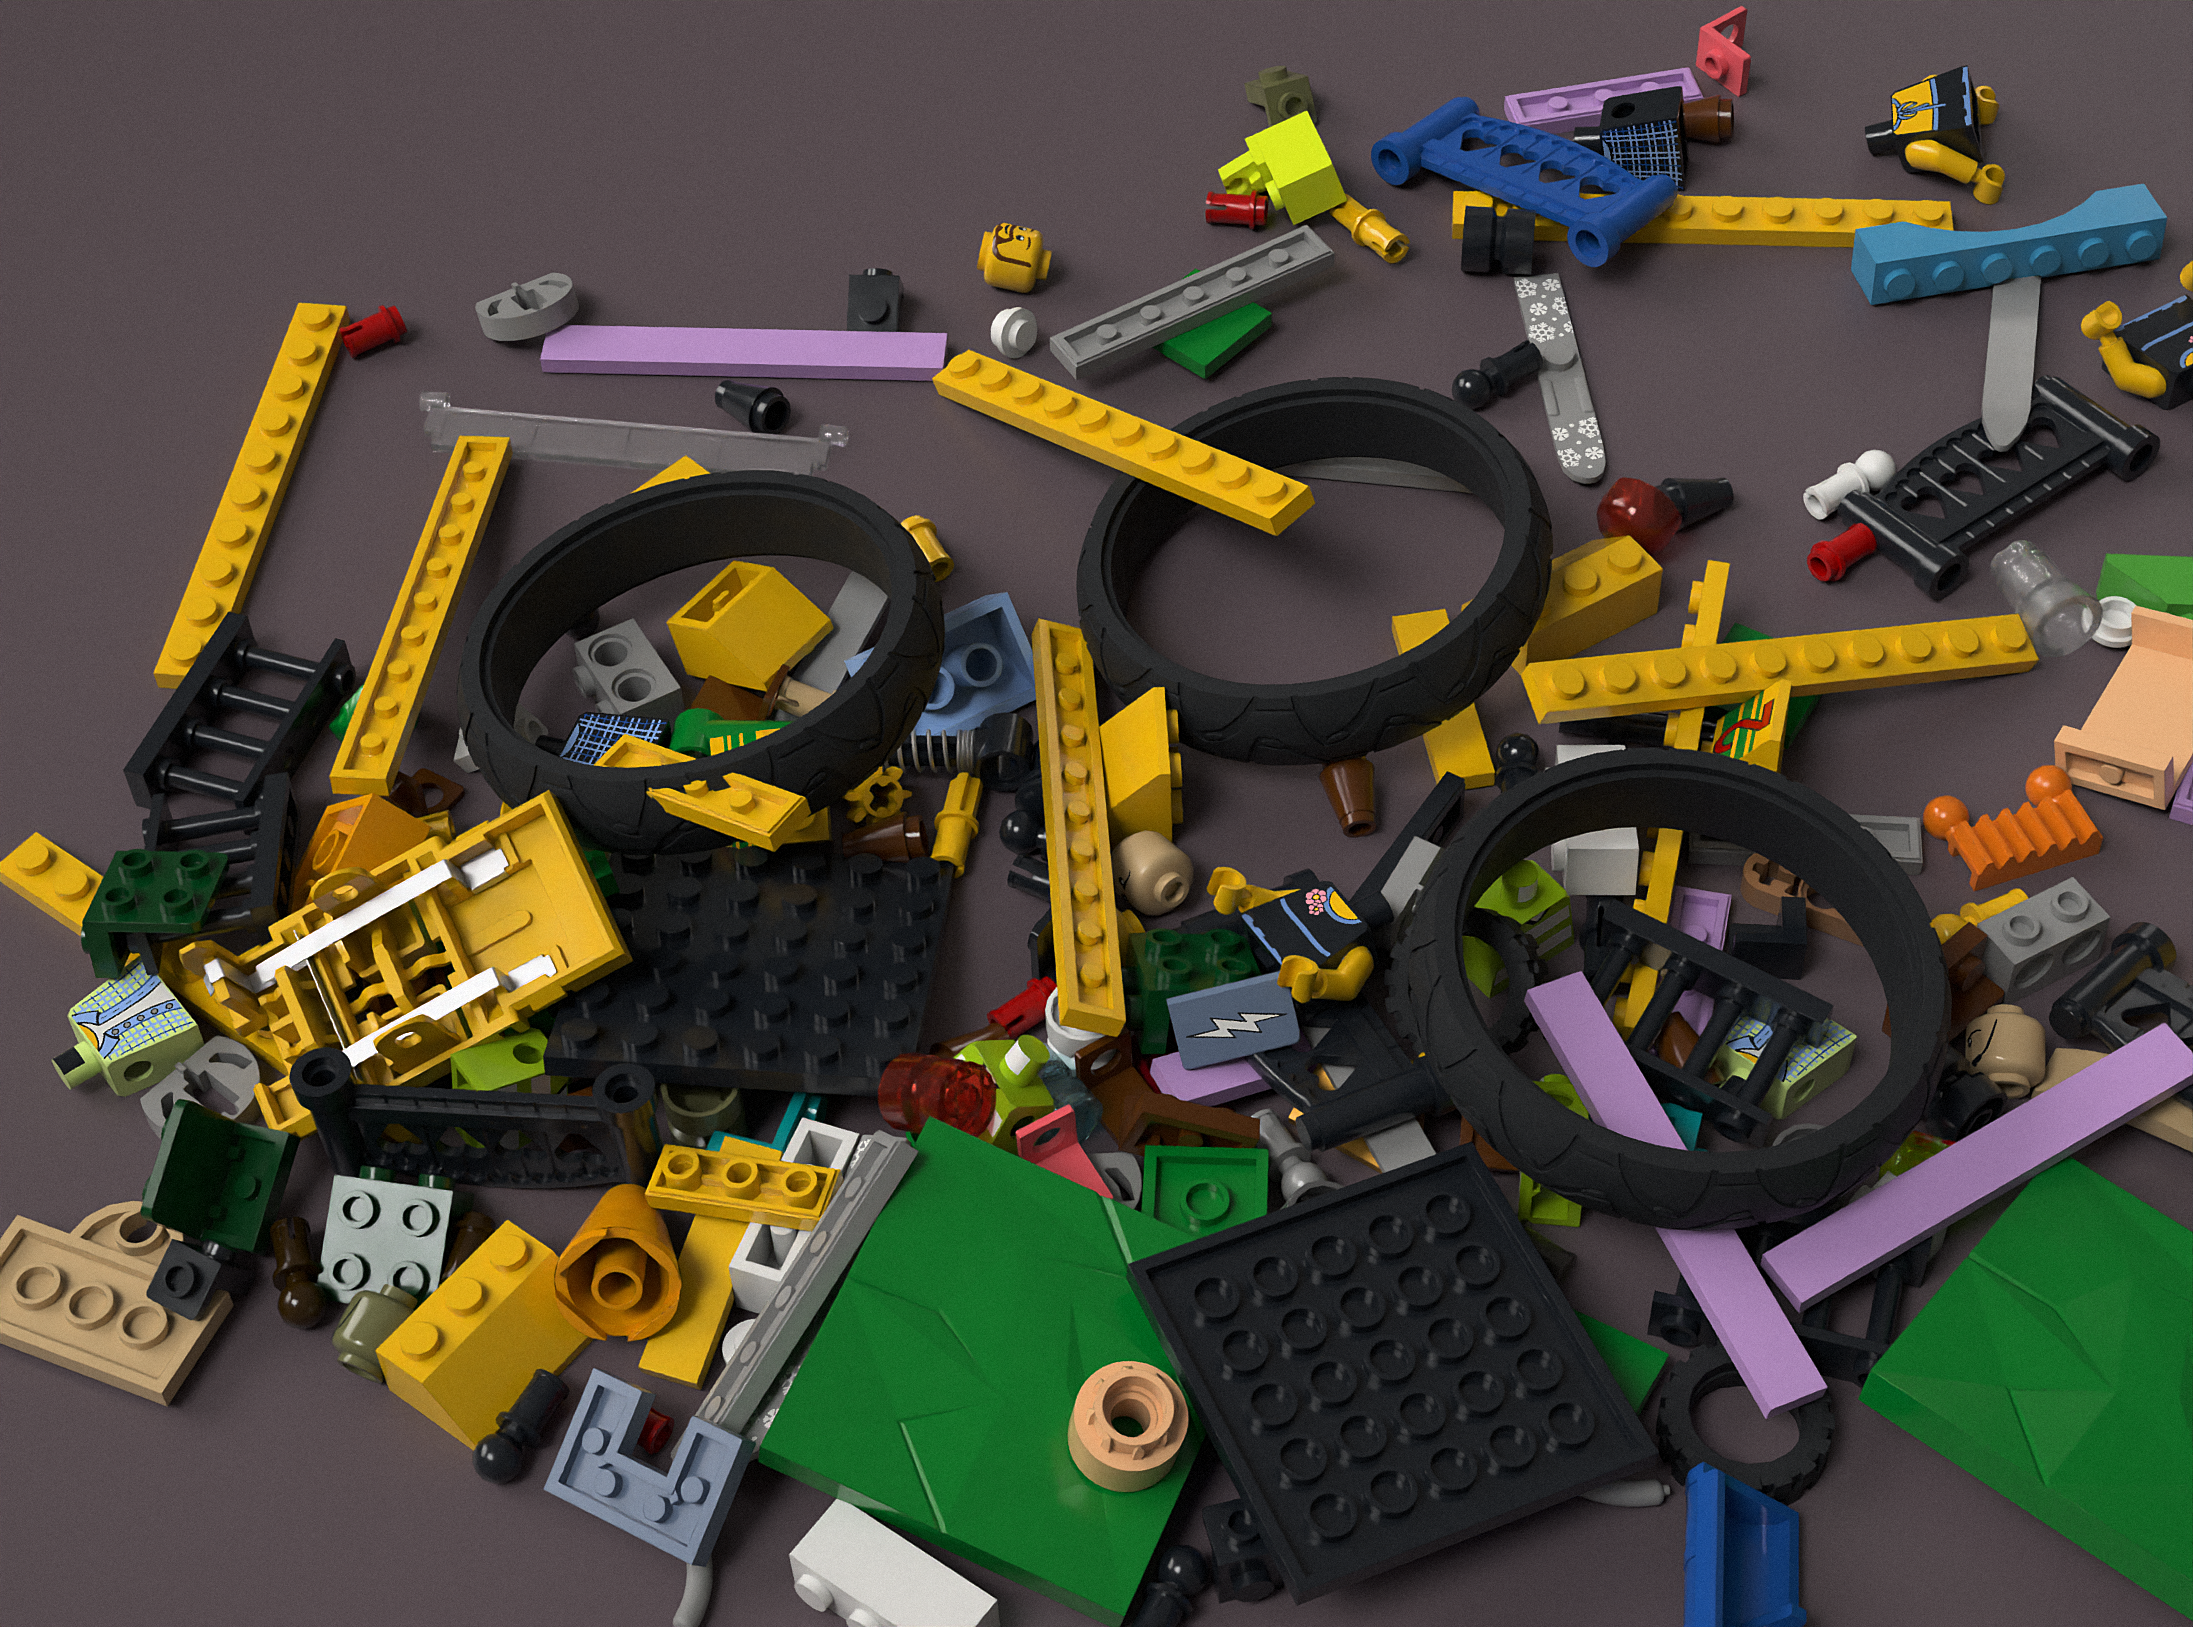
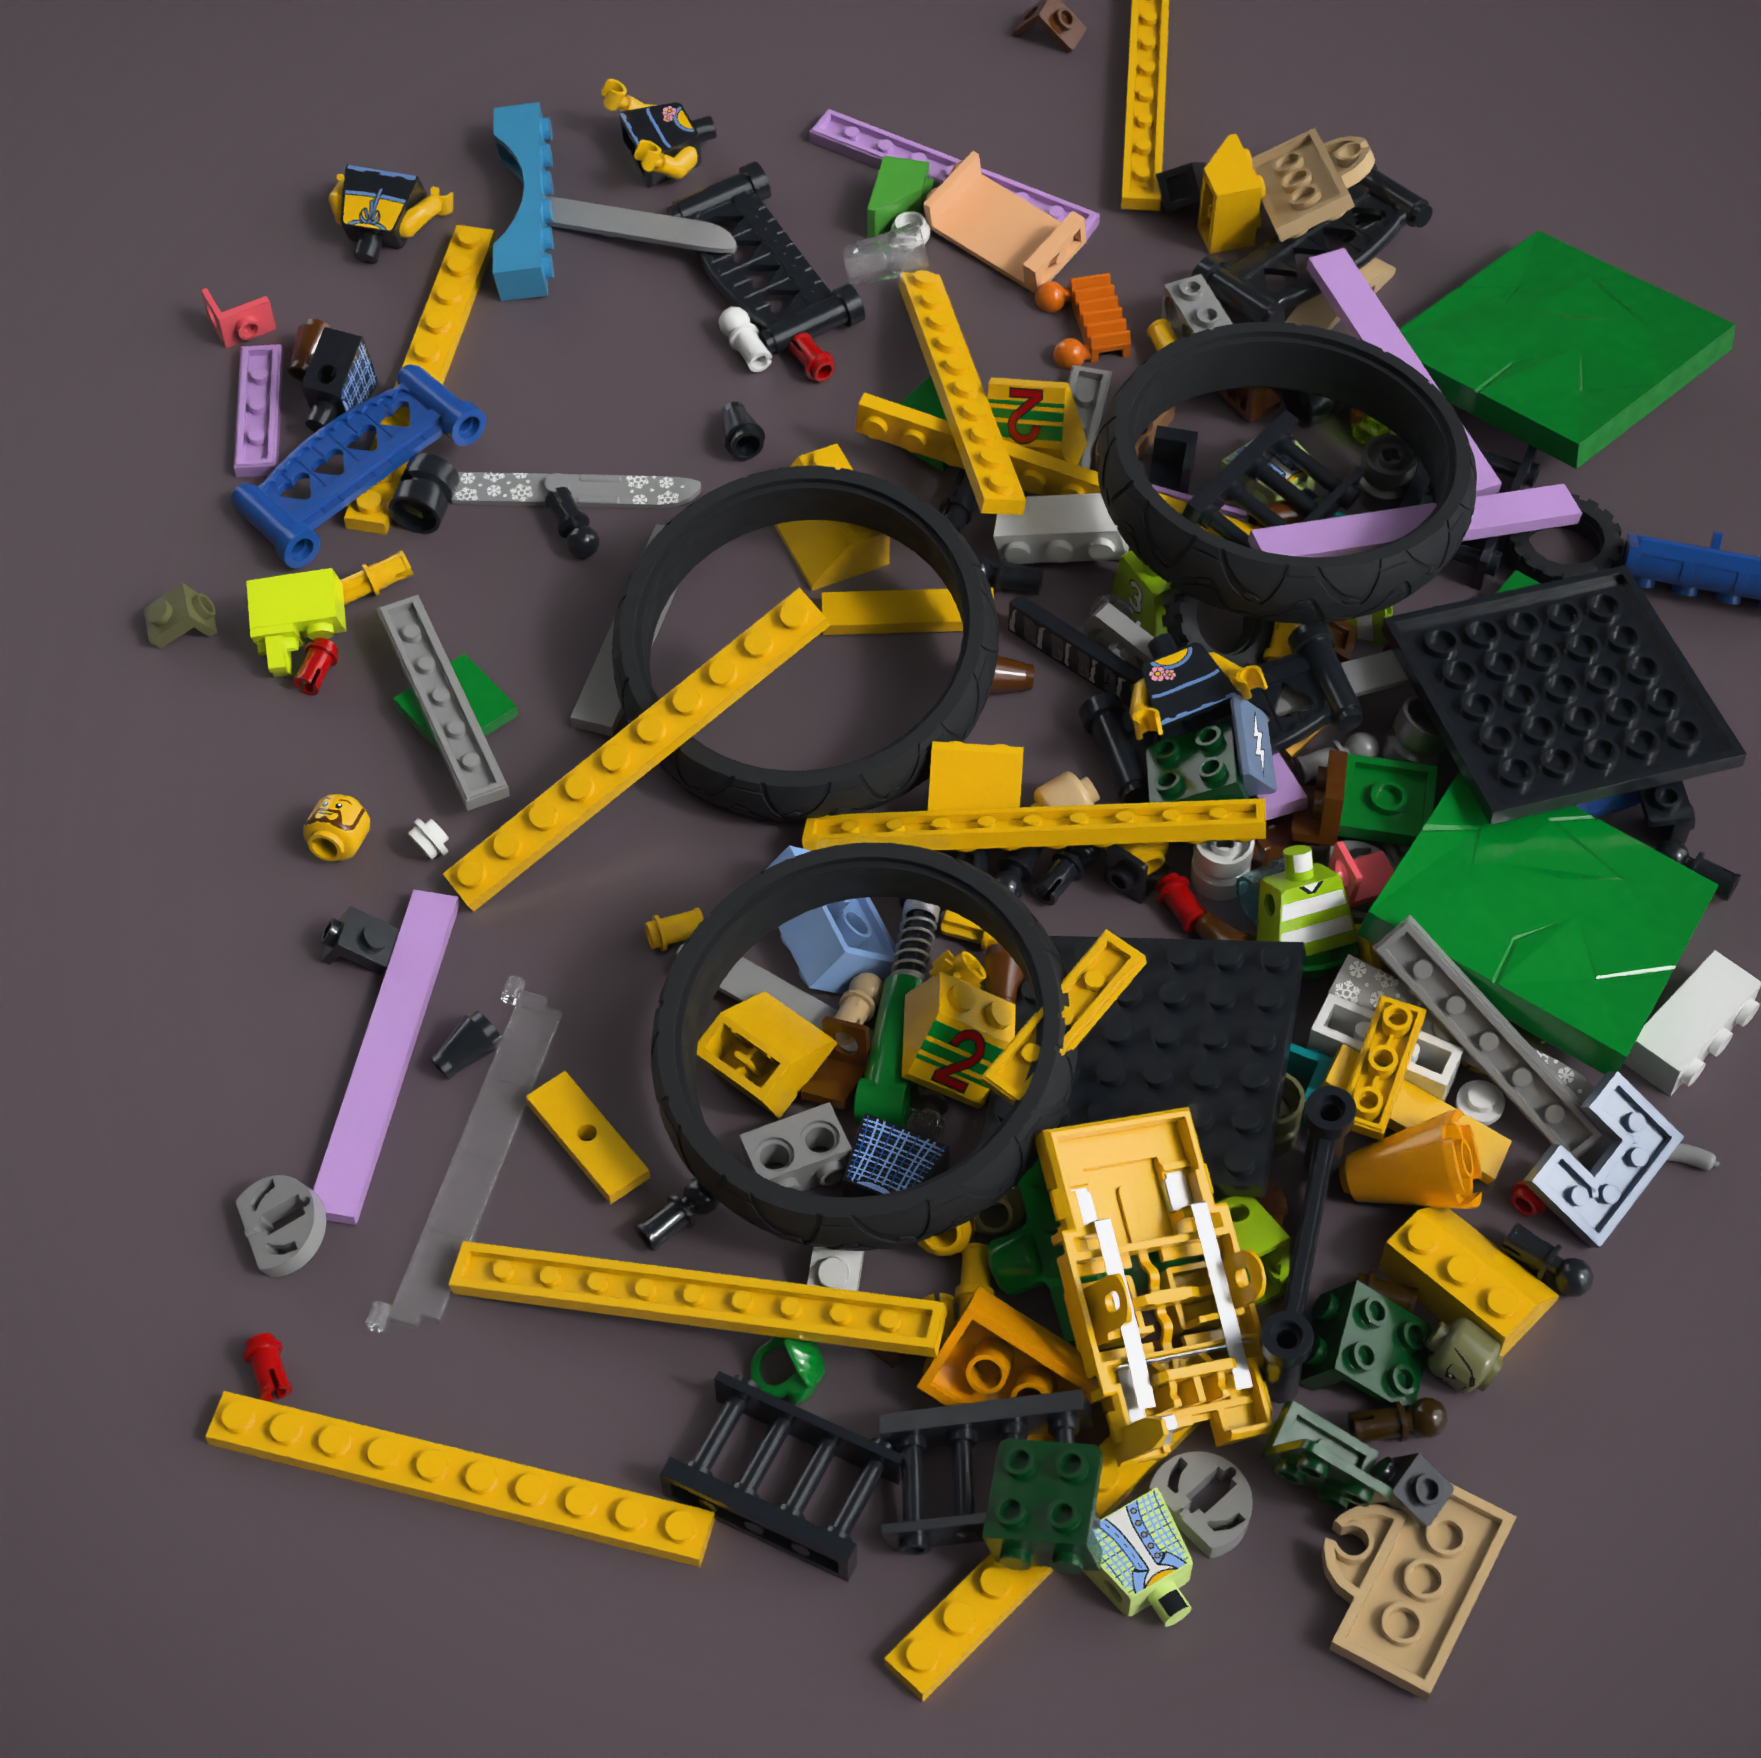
camera: 85 degrees left, 5 degrees up
(937, 1087) = (1323, 923): clear red wheel -> none
(1134, 1392) = (1607, 840): light nougat piece -> none
(1638, 511) = (768, 450): clear red hair -> none

